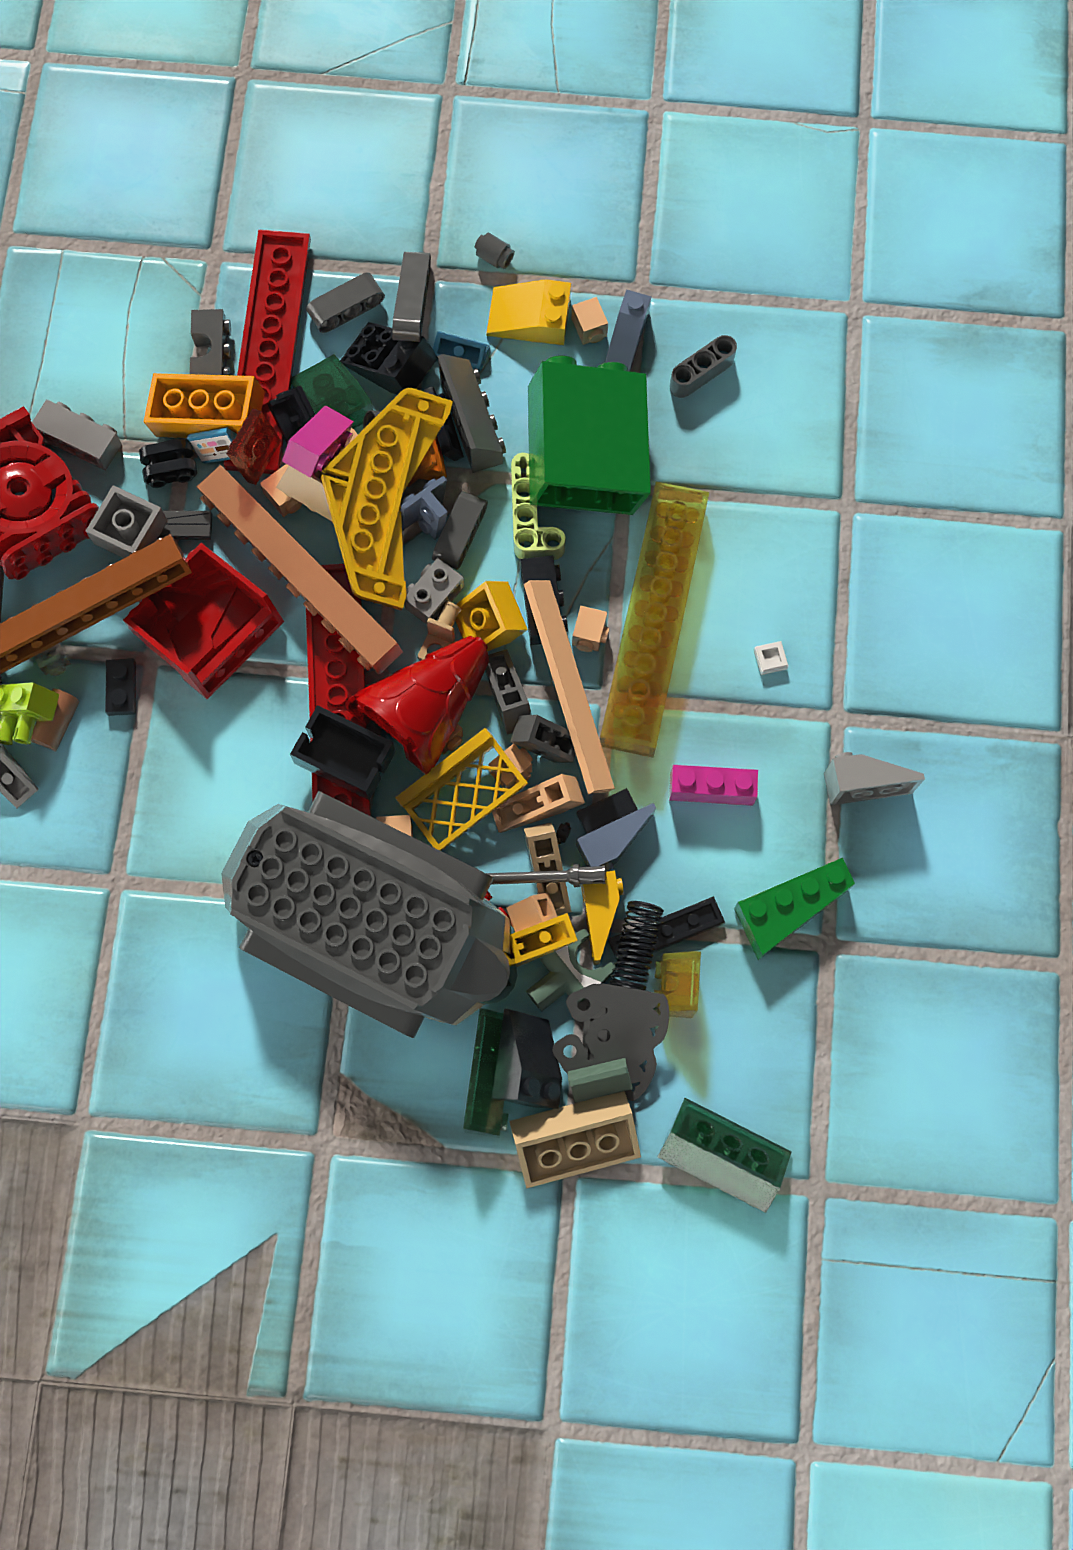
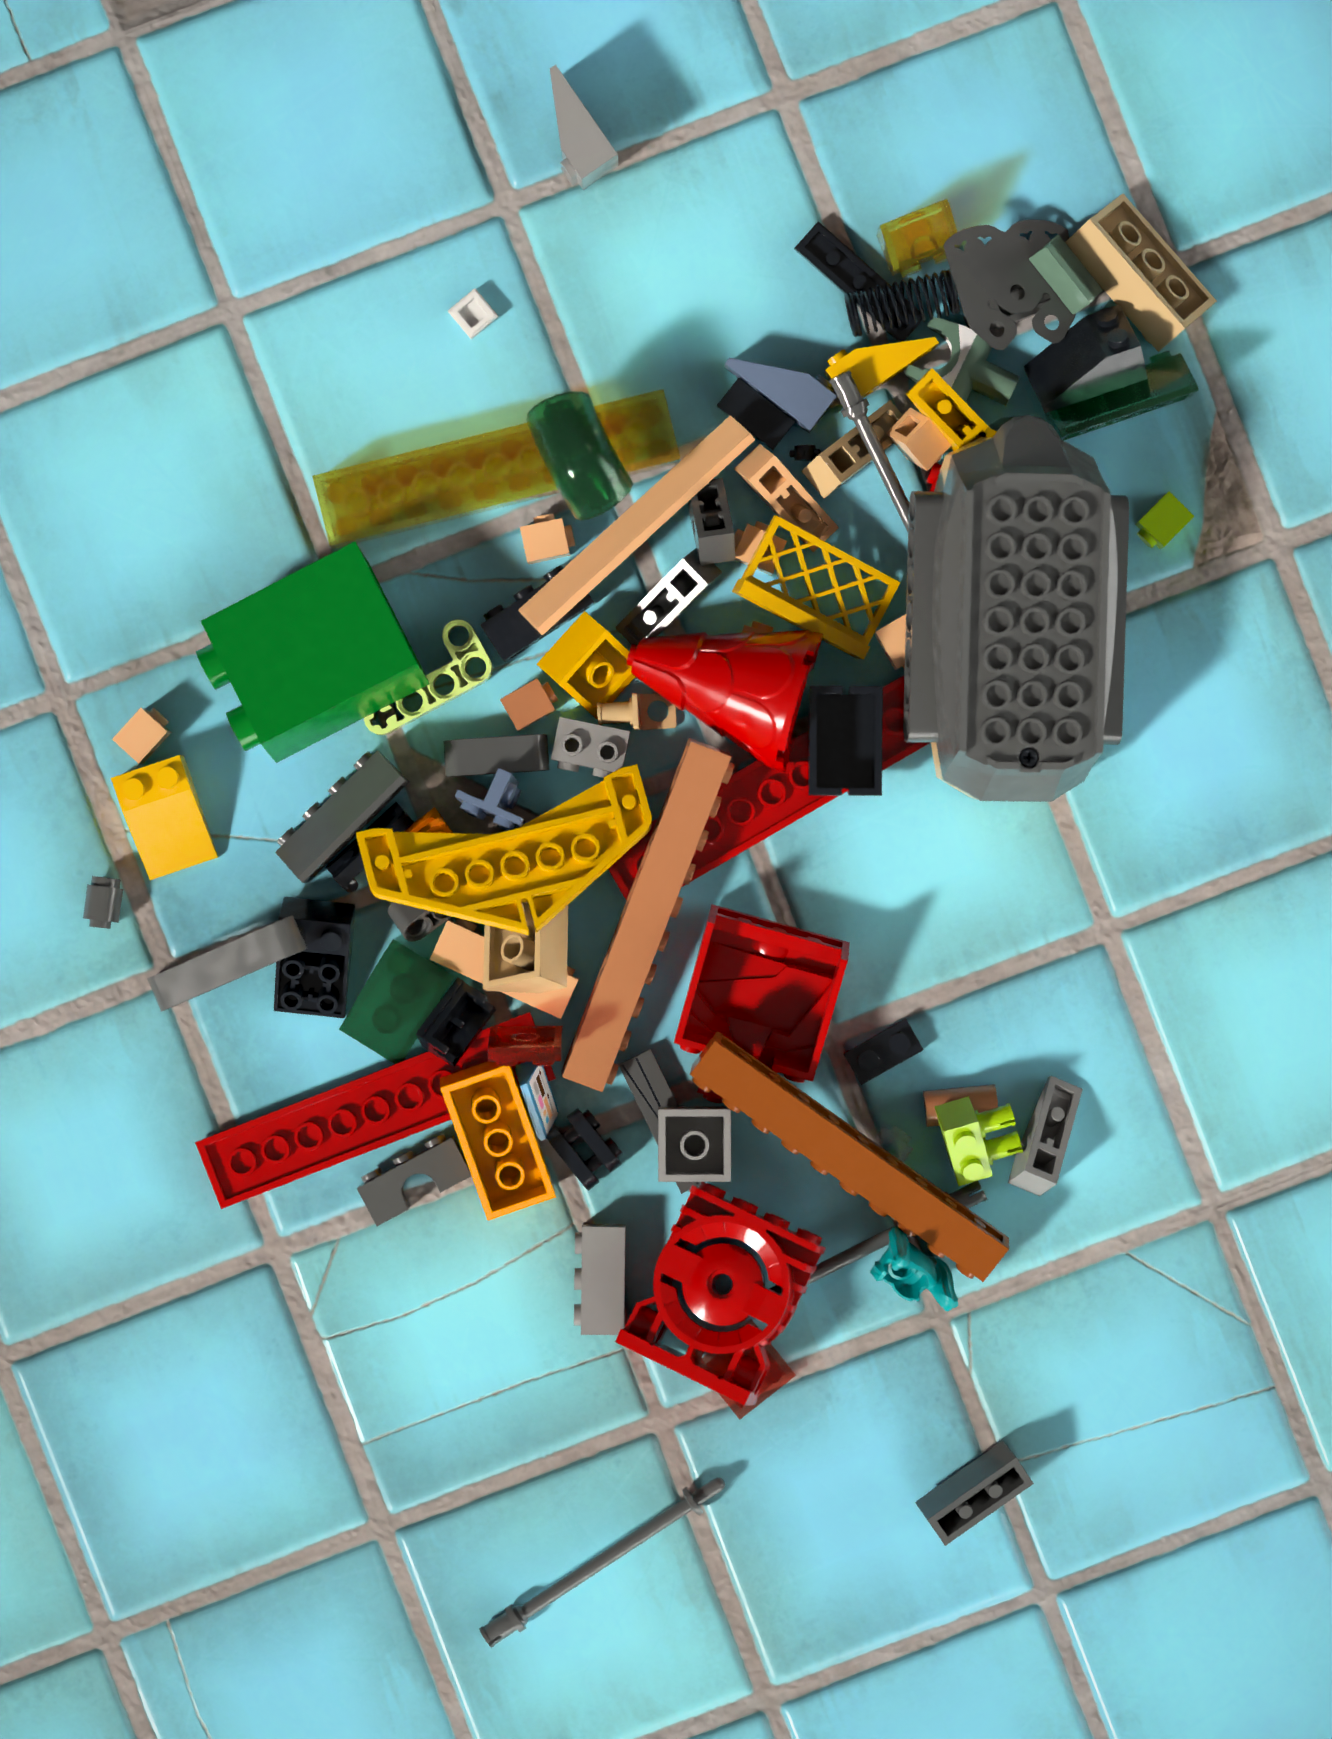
camera: 115 degrees left, 15 degrees up
(318, 441) = (489, 961): dark pink brick -> none
(345, 302) = (265, 1049): dark grey beam -> none
(383, 1063) = (1163, 521): none -> lime brick
(462, 348) = (255, 877): dark azure slope -> none
(482, 564) = (529, 703): none -> nougat brick
(629, 328) = (139, 680): sand blue slope -> none
(636, 660) = (578, 454): none -> clear green brick
(708, 356) = (118, 563): dark grey beam -> none
(713, 785) = (666, 307): dark pink brick -> none
(725, 1155) = (1077, 102): clear green slope -> none
(785, 908) = (769, 157): green wedge -> none

